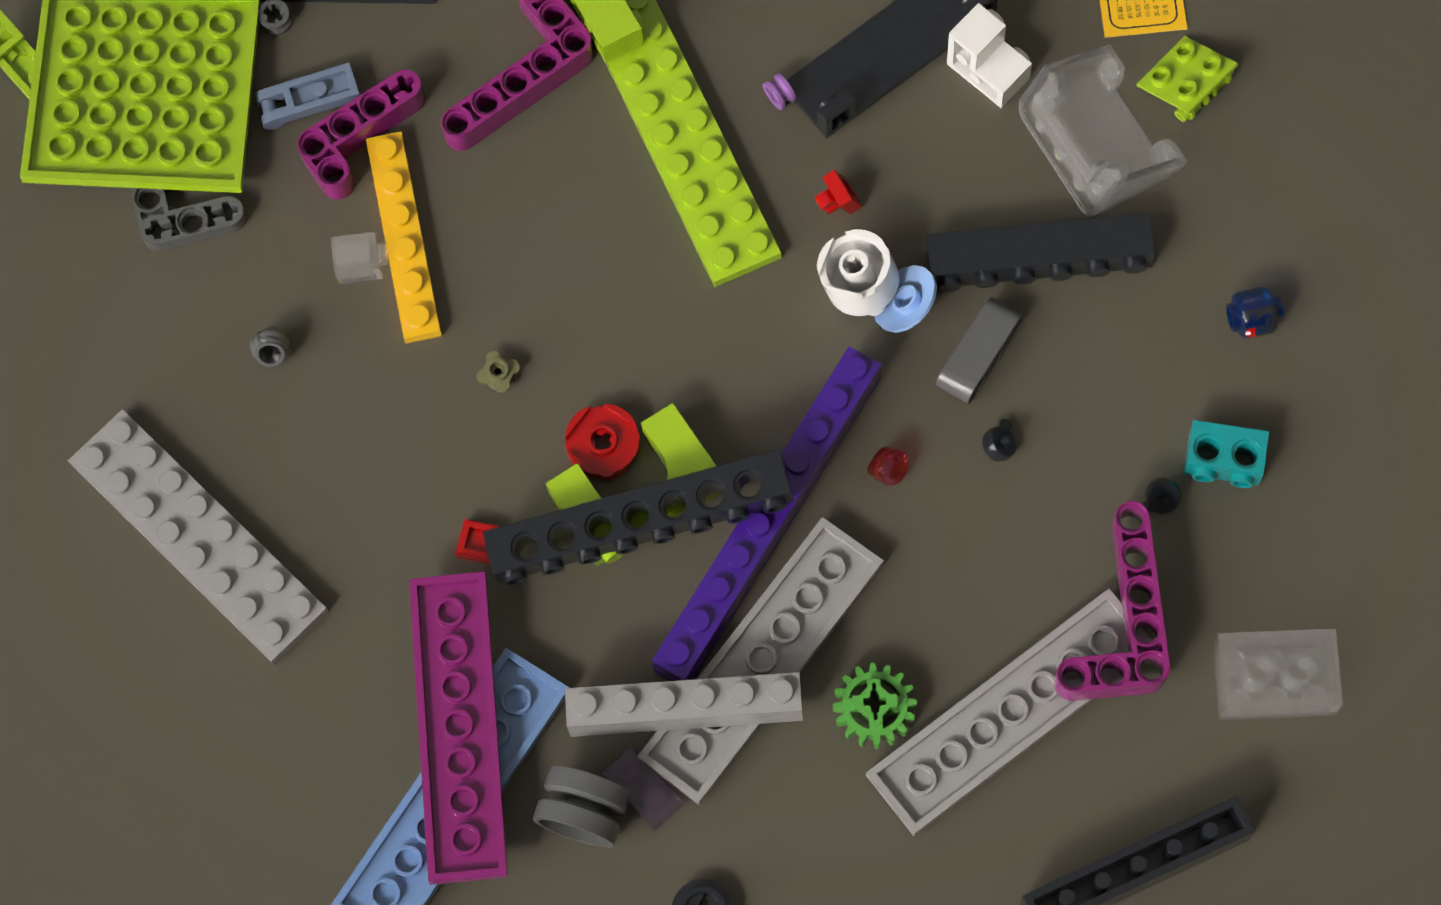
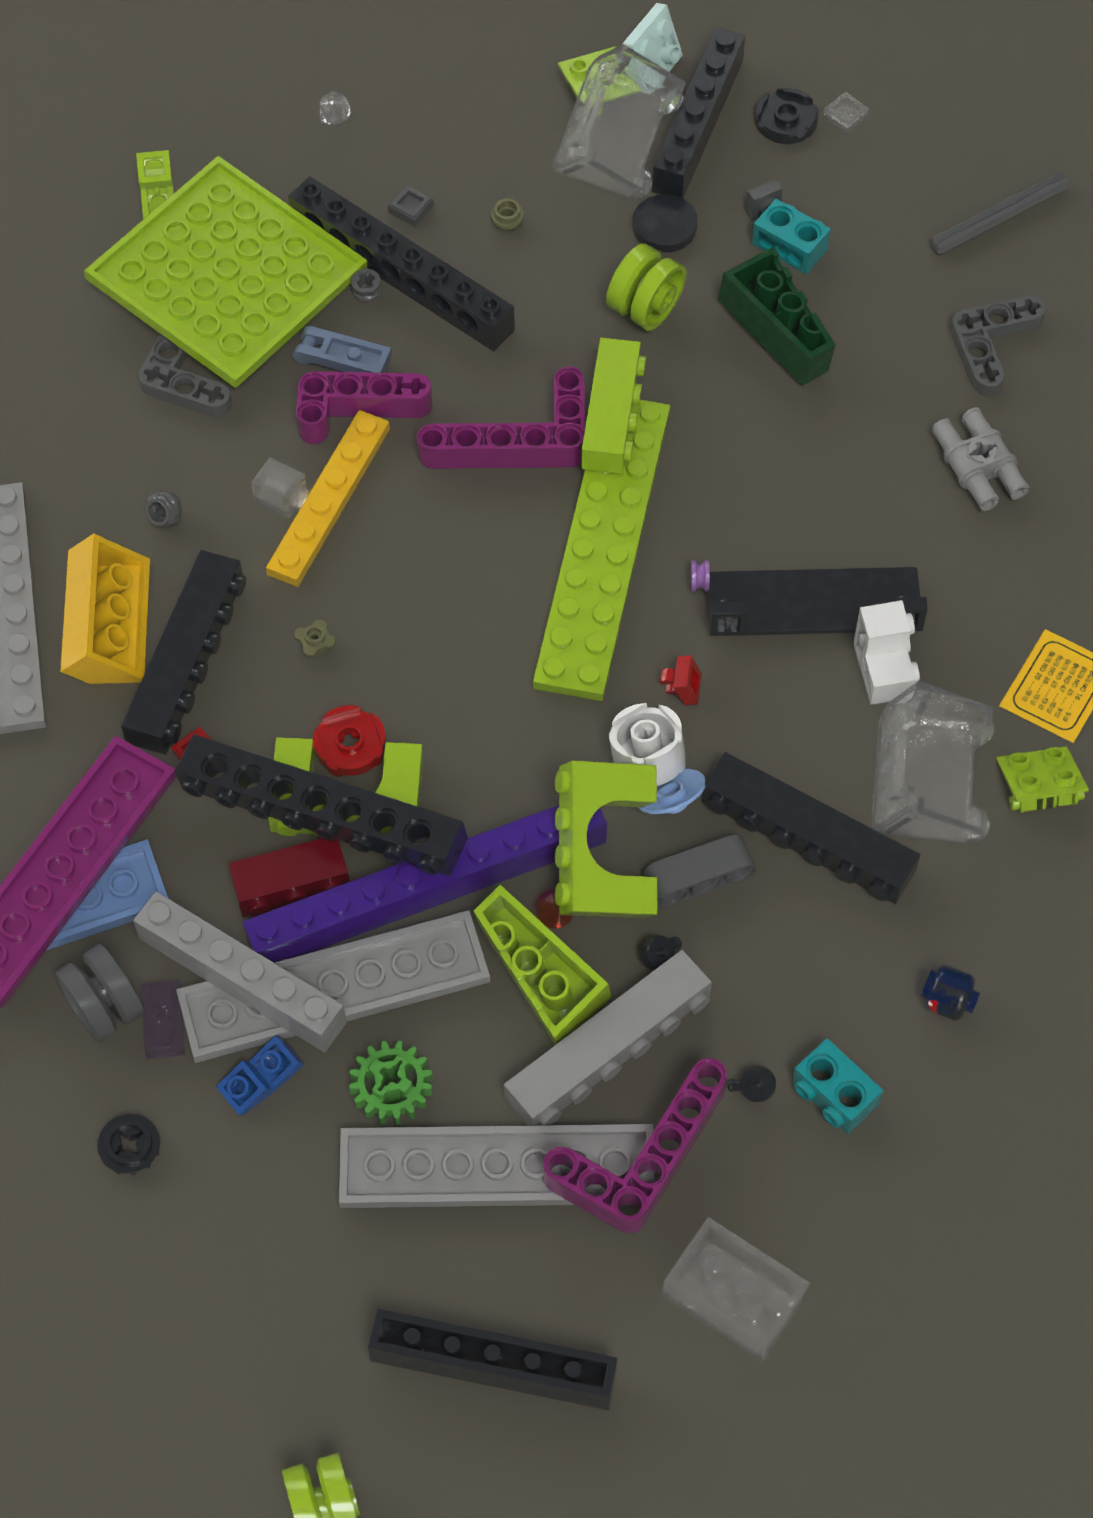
camera: 30 degrees right, 10 degrees down
(299, 476) = (105, 613): none -> yellow slope
(397, 463) = (183, 653): none -> black brick
(651, 595) = (287, 875): none -> dark red brick
(761, 776) = (261, 1076): none -> blue slope
(853, 357) = (583, 884): none -> lime arch
(921, 522) = (547, 972): none -> lime wedge
(1019, 545) = (608, 1041): none -> light grey brick

